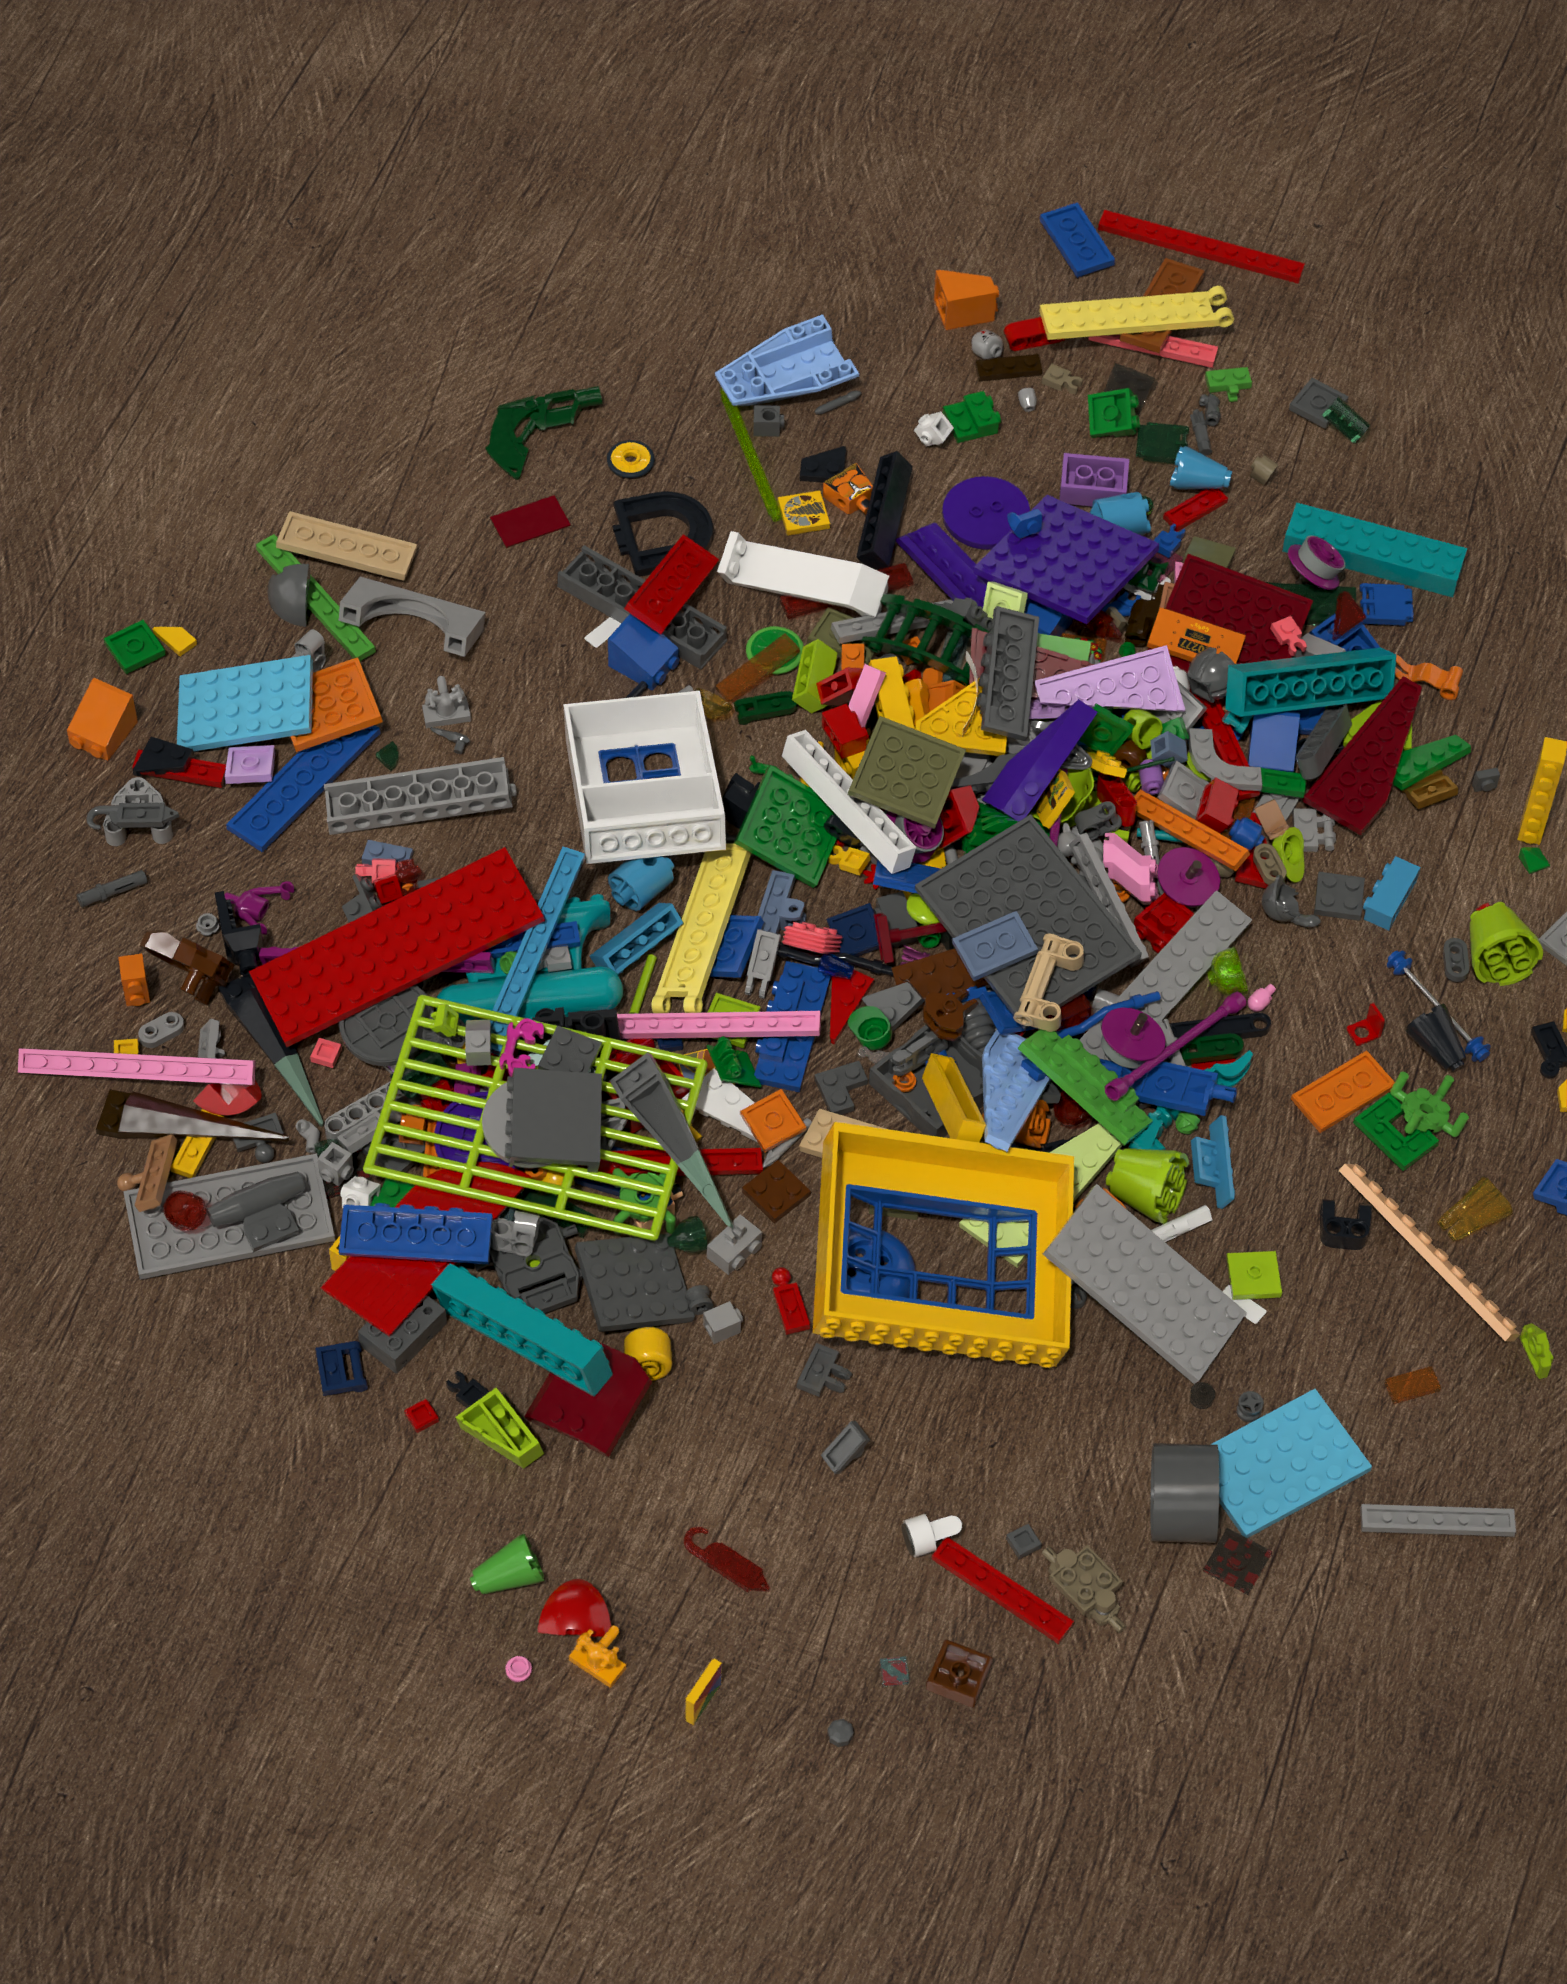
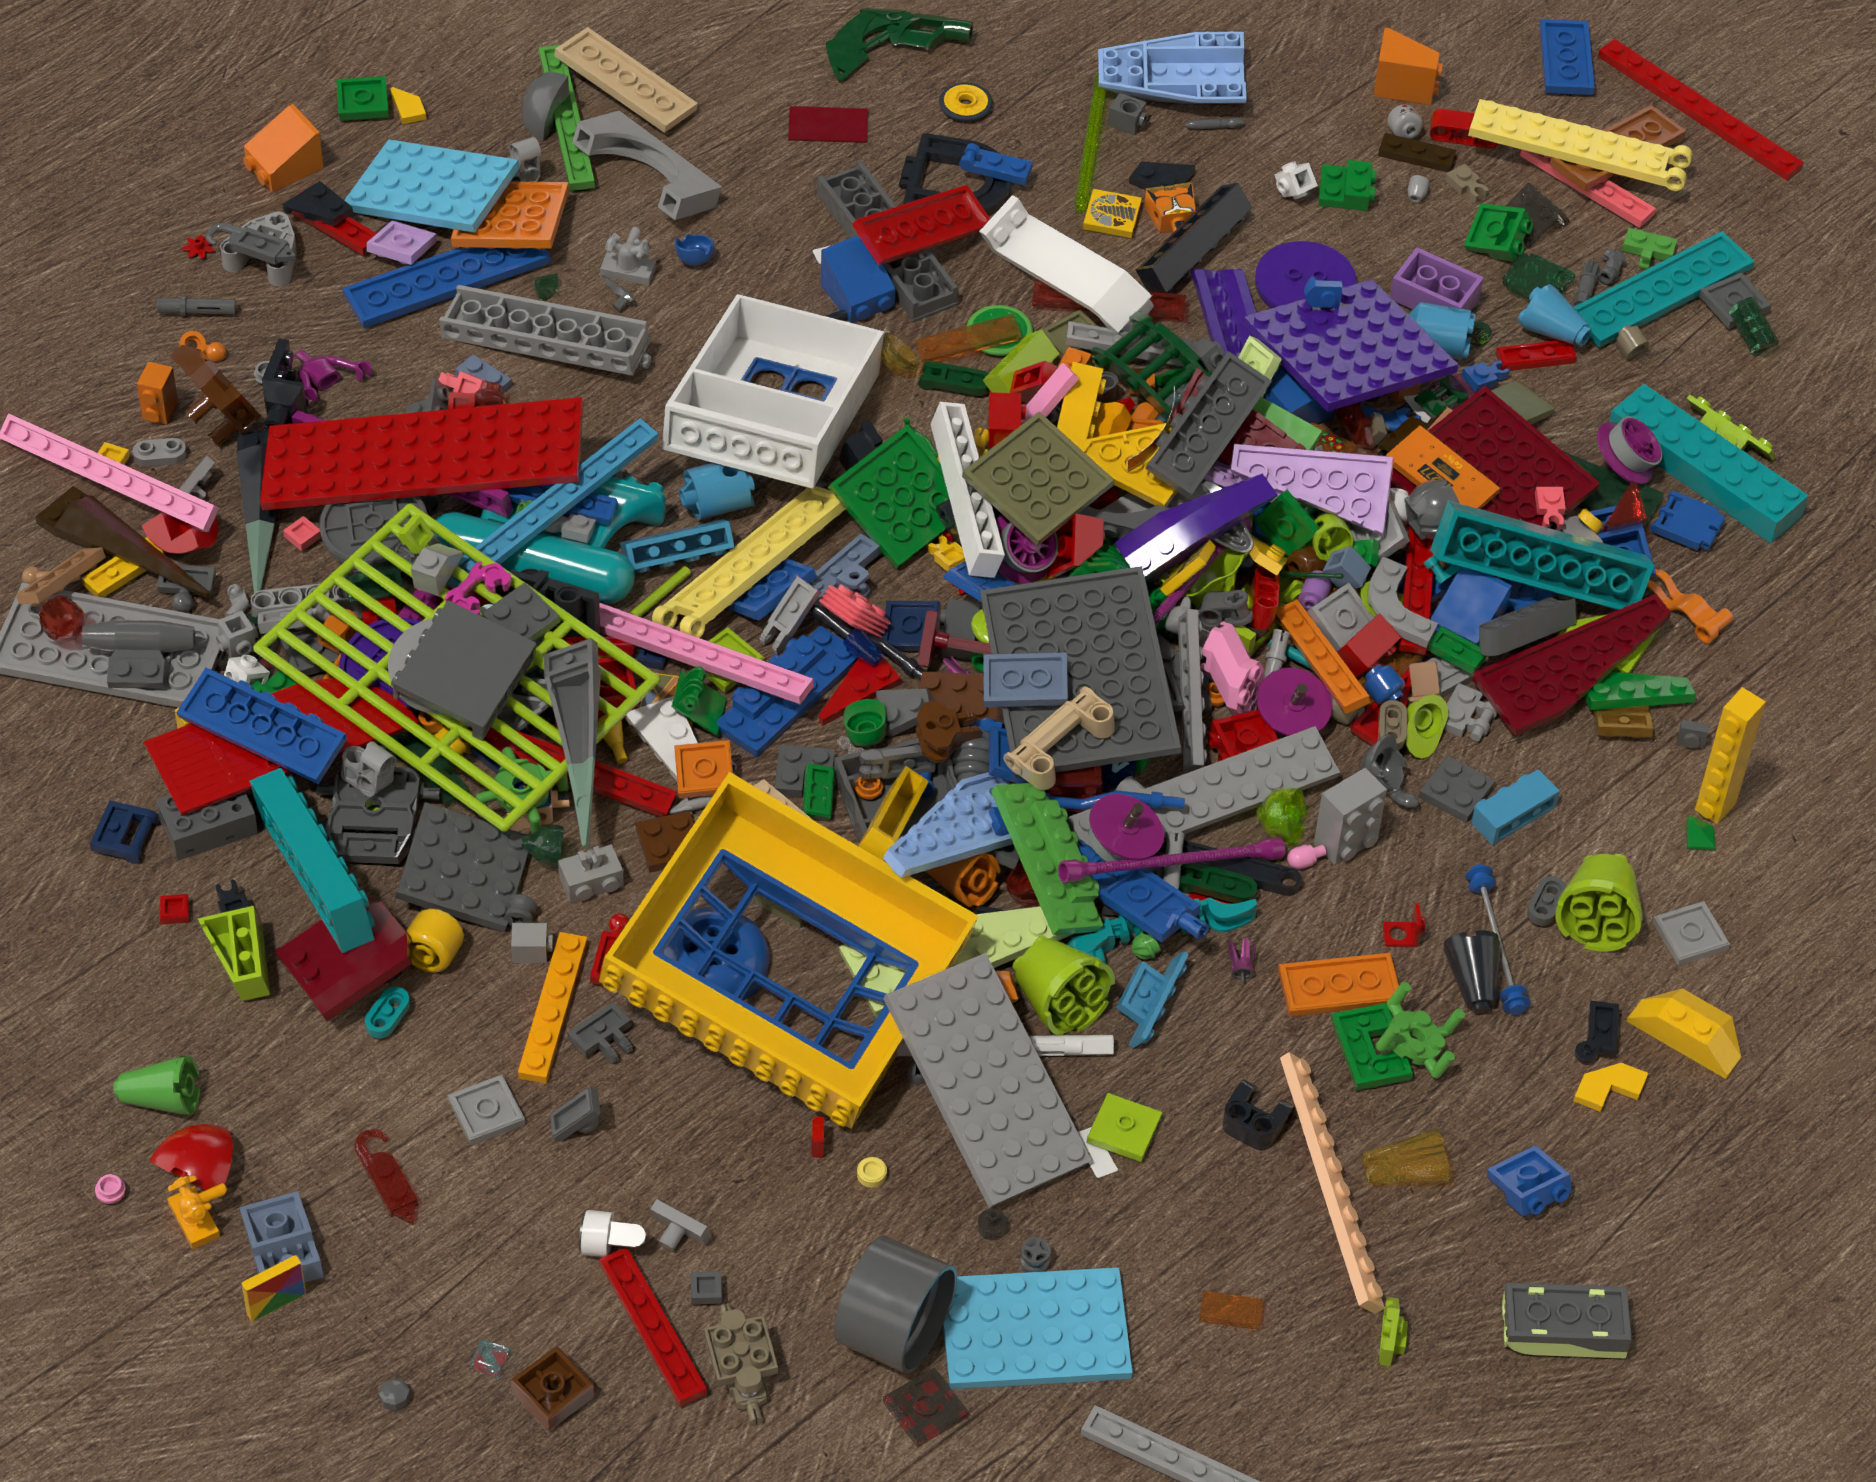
camera: 25 degrees right, 5 degrees down
(78, 834) = (198, 246): none -> red plant
(150, 923) = (215, 351): none -> orange plate
(493, 675) = (694, 249): none -> blue hair
(645, 1429) = (384, 1014): none -> teal plate
(677, 1648) = (279, 1231): none -> sand blue slope
(691, 507) = (995, 165): none -> blue plate
(769, 1367) = (552, 1008): none -> light orange plate
(769, 1473) = (486, 1109): none -> light grey tile
(868, 1101) = (818, 791): none -> green plate
(938, 637) = (1167, 377): none -> green plate
(975, 1501) = (678, 1225): none -> light grey tile
(1035, 1384) = (817, 1137): none -> red tile
(1089, 1393) = (871, 1172): none -> light yellow tile
(1260, 412) = (1663, 287): none -> teal plate
(1263, 1103) = (1241, 967): none -> flat silver piece
(1286, 953) = (1350, 816): none -> light grey brick
(1322, 634) = (1591, 521): none -> yellow tile
(1382, 517) = (1721, 424): none -> lime bracket

